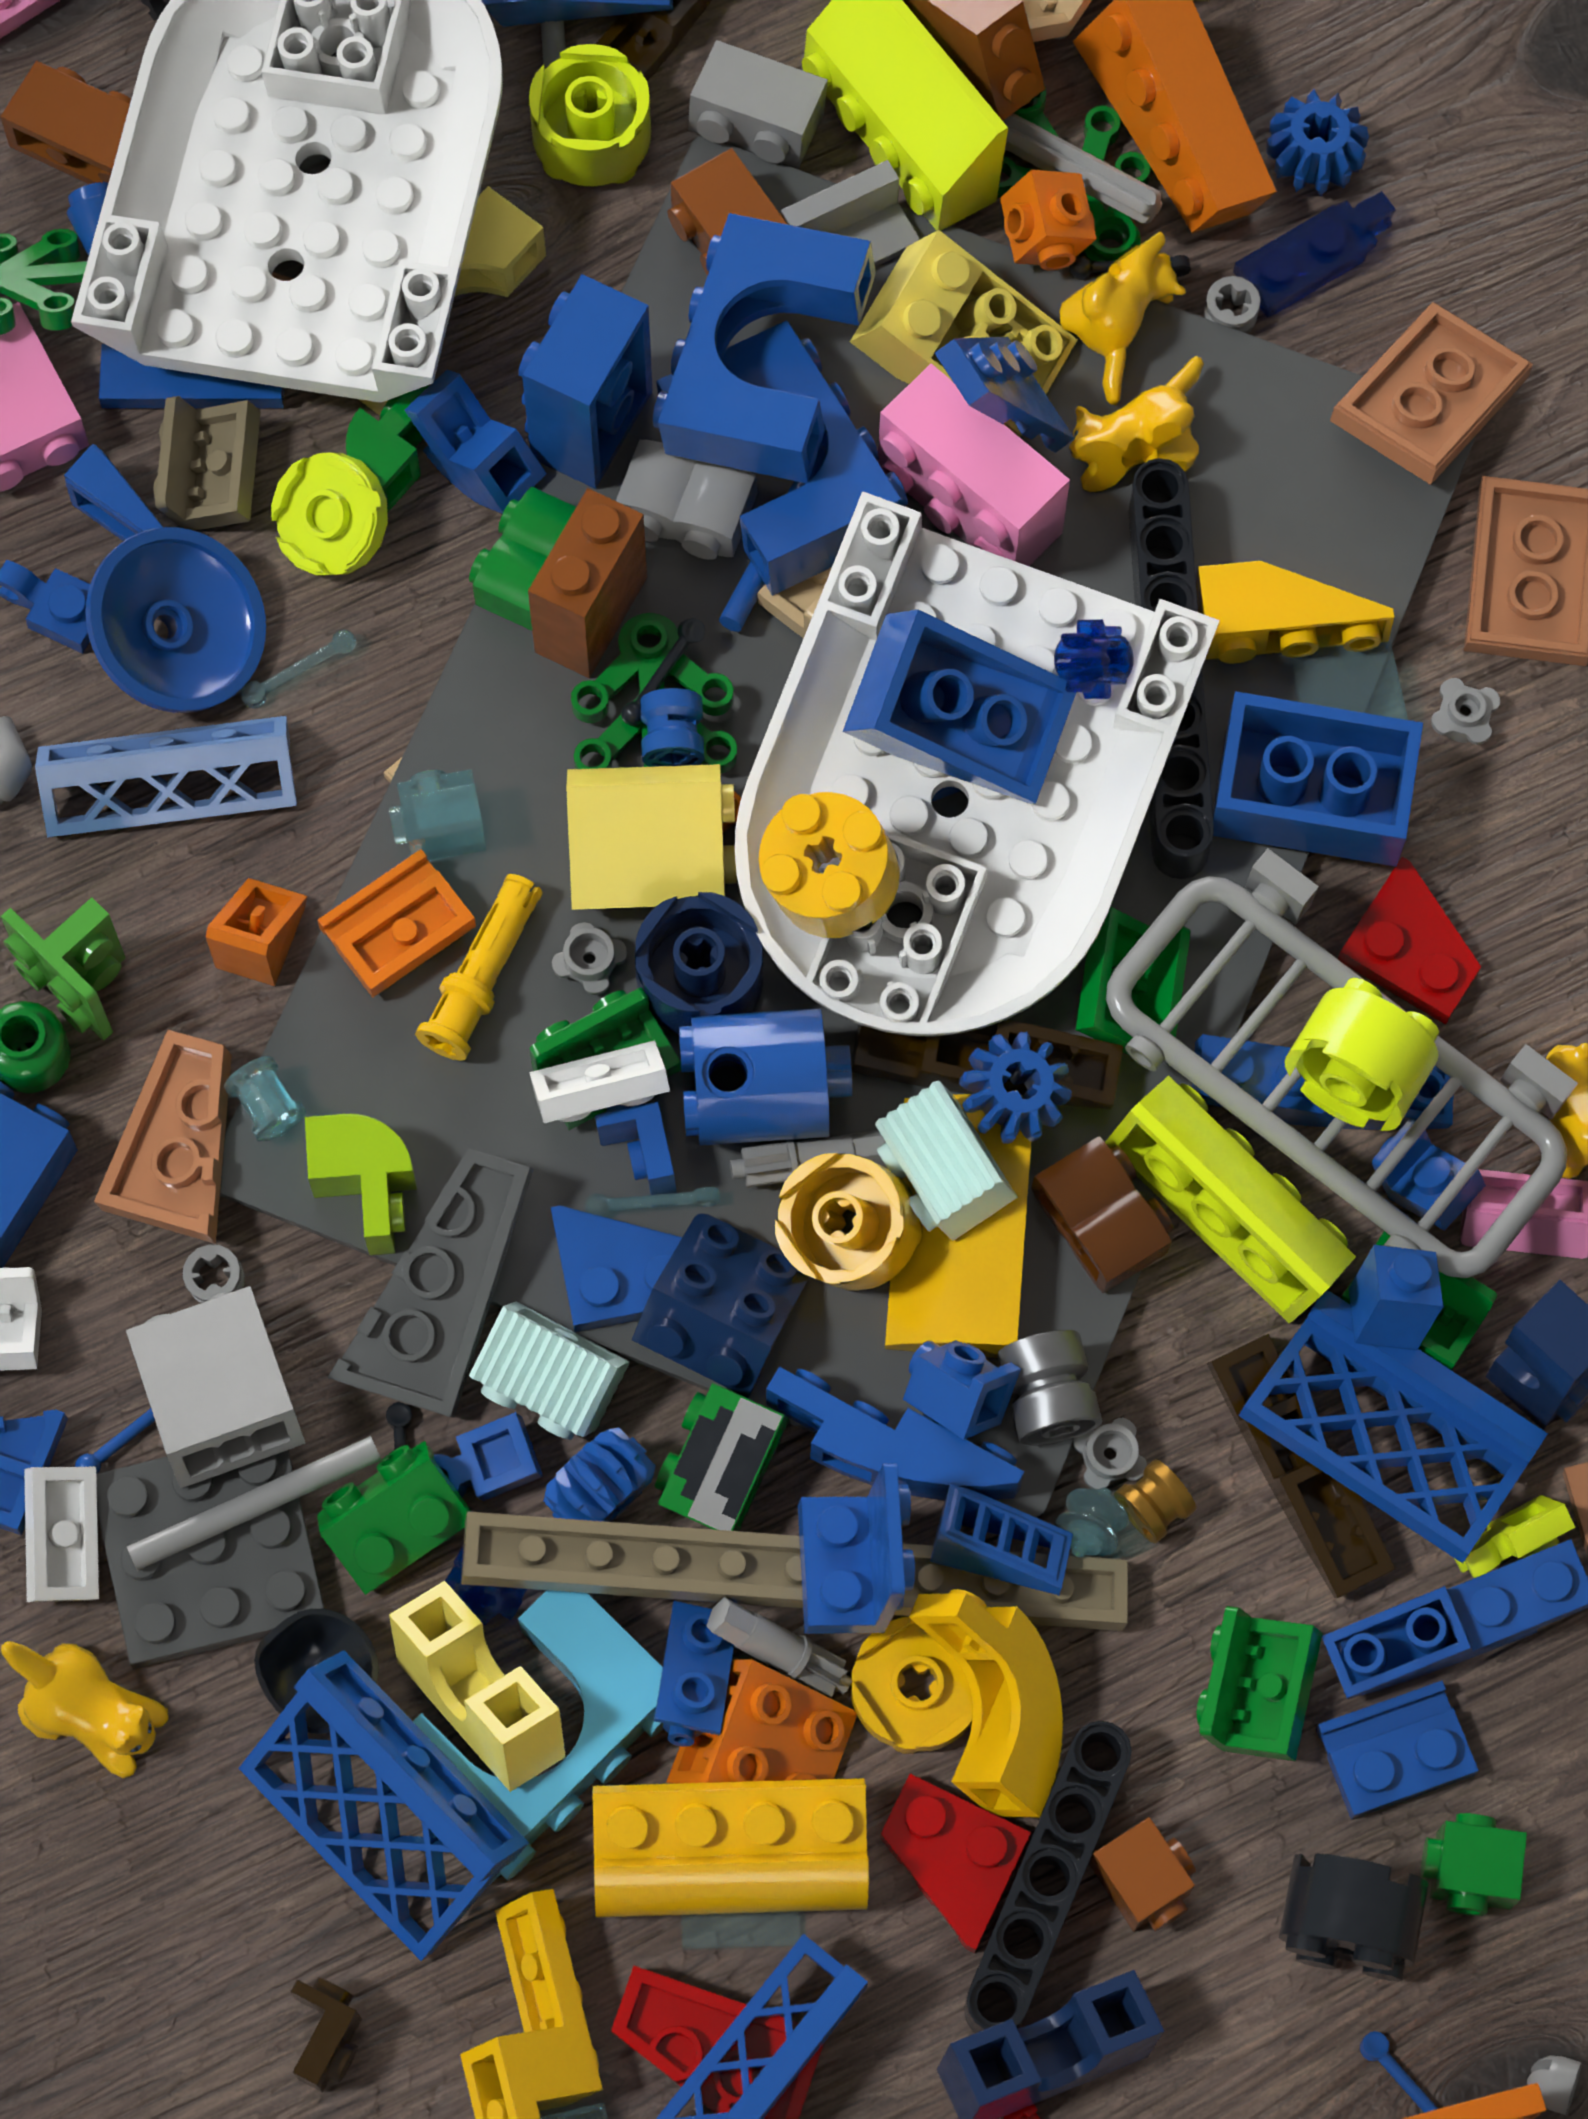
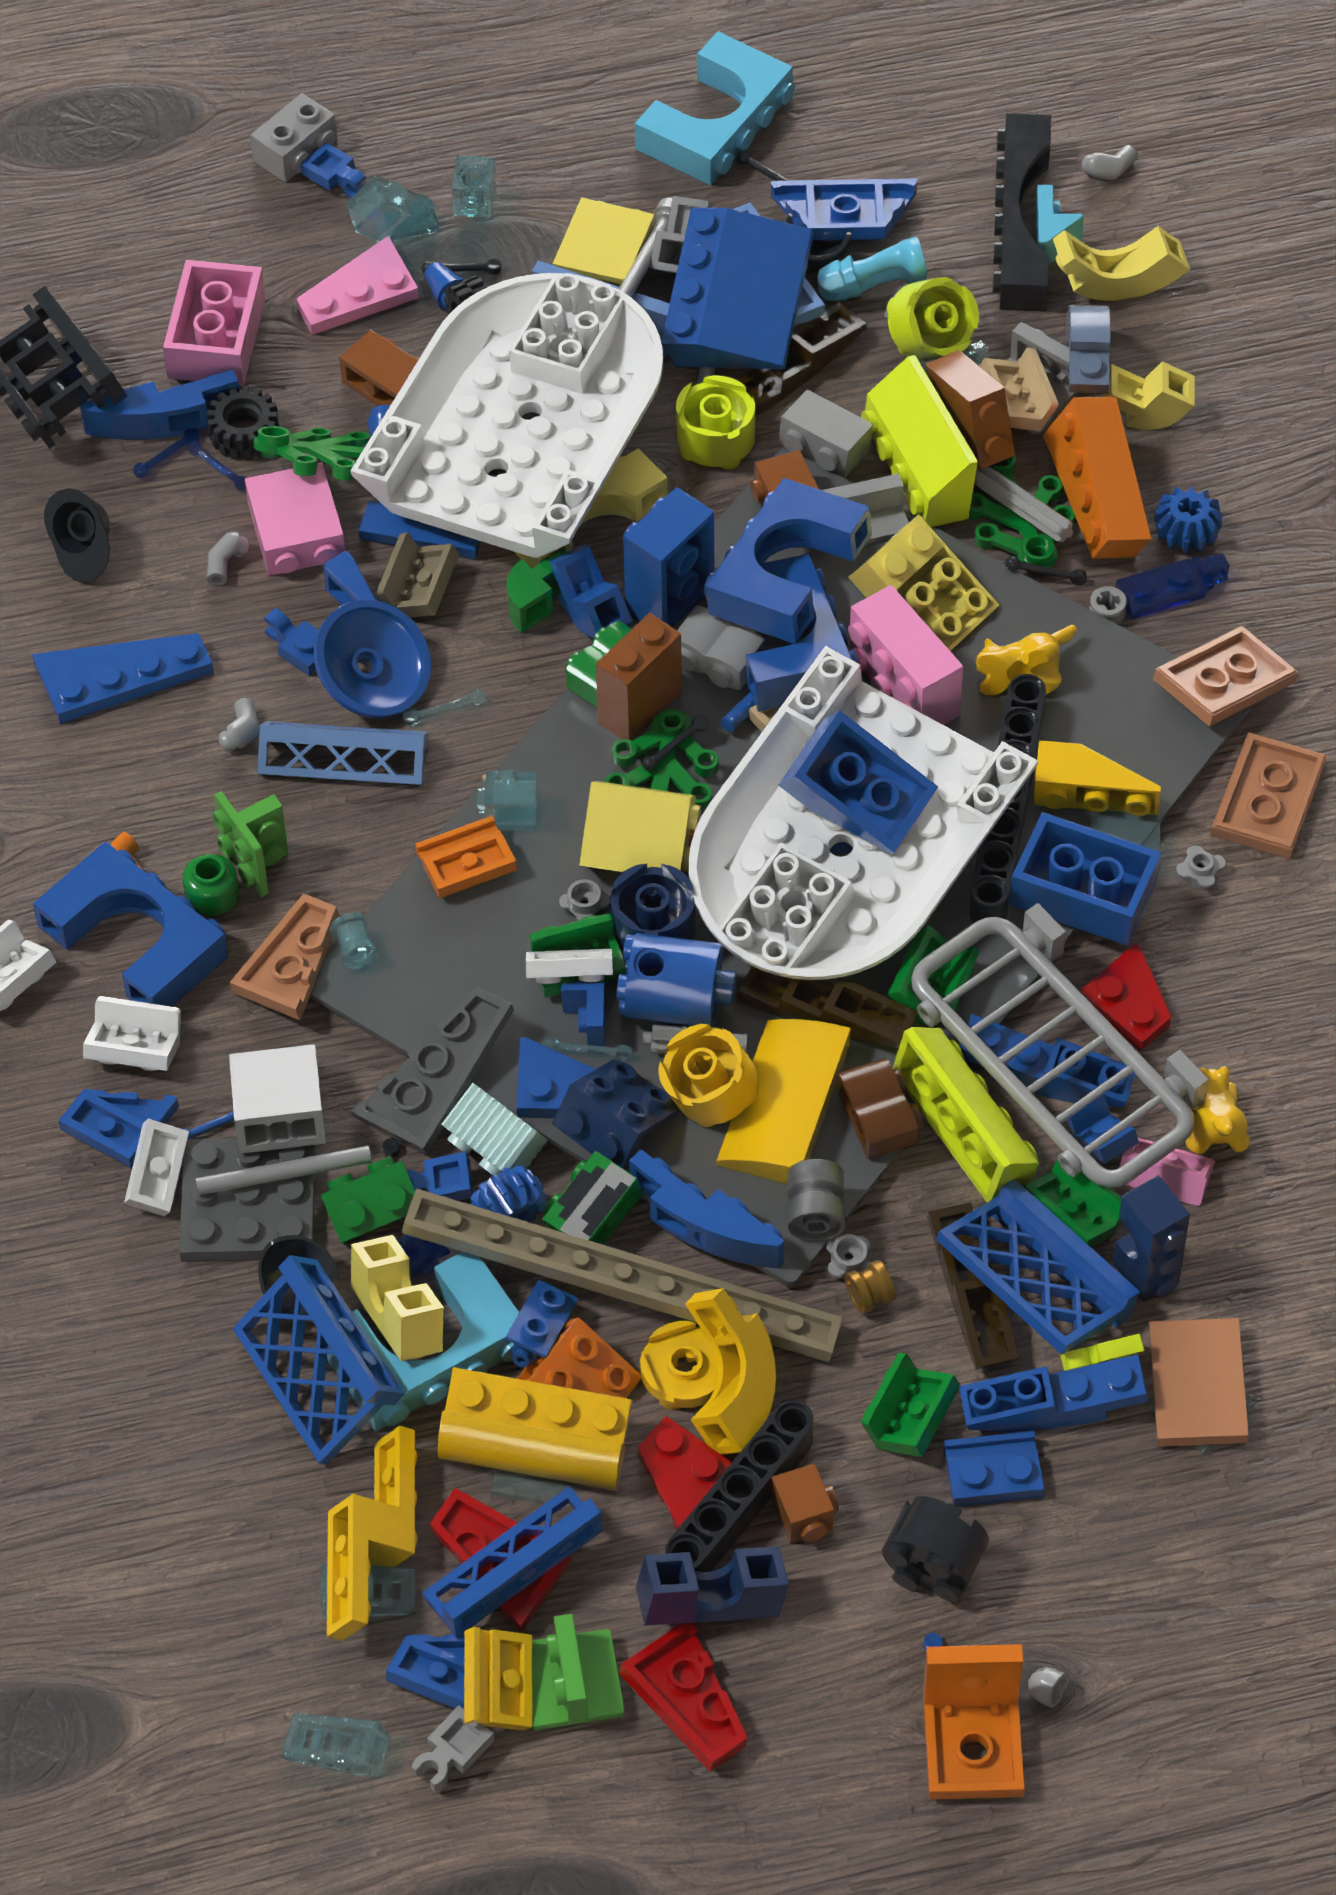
camera: 15 degrees right, 15 degrees down
(75, 1699) = (138, 1263): yellow animal -> none
(212, 1256) = (293, 1030): light grey bush -> none
(255, 931) = (373, 850): orange slope -> none
(329, 514) = (486, 618): neon yellow tile -> none
(329, 2048) = (248, 1493): dark brown bracket -> none
(366, 1158) = (405, 986): lime brick -> none
(469, 991) = (502, 903): yellow pin -> none
(672, 727) = (672, 768): blue wheel -> none
(779, 1648) = (599, 1319): light grey piece -> none
(813, 832) = (746, 853): yellow brick -> none
(855, 1557) = (659, 1267): blue bracket -> none
(944, 1161) = (780, 1050): light aqua brick -> none
(959, 1387) = (756, 1183): blue brick -> none
(975, 1556) = (745, 1275): blue slope -> none
(1000, 383) = (934, 604): blue wing -> none
(1020, 1066) = (836, 1013): blue gear -> none
(1048, 219) = (996, 527): orange brick -> none
(1093, 658) = (950, 769): clear blue gear -> none
(1093, 1520) = (825, 1289): clear light blue wheel -> none
(1113, 306) = (1025, 584): yellow animal -> none
(1363, 1055) = (1066, 1029): neon yellow brick -> none
(1395, 1297) = (1056, 1185): blue brick -> none
(1474, 1864) = (1026, 1542): green brick -> none

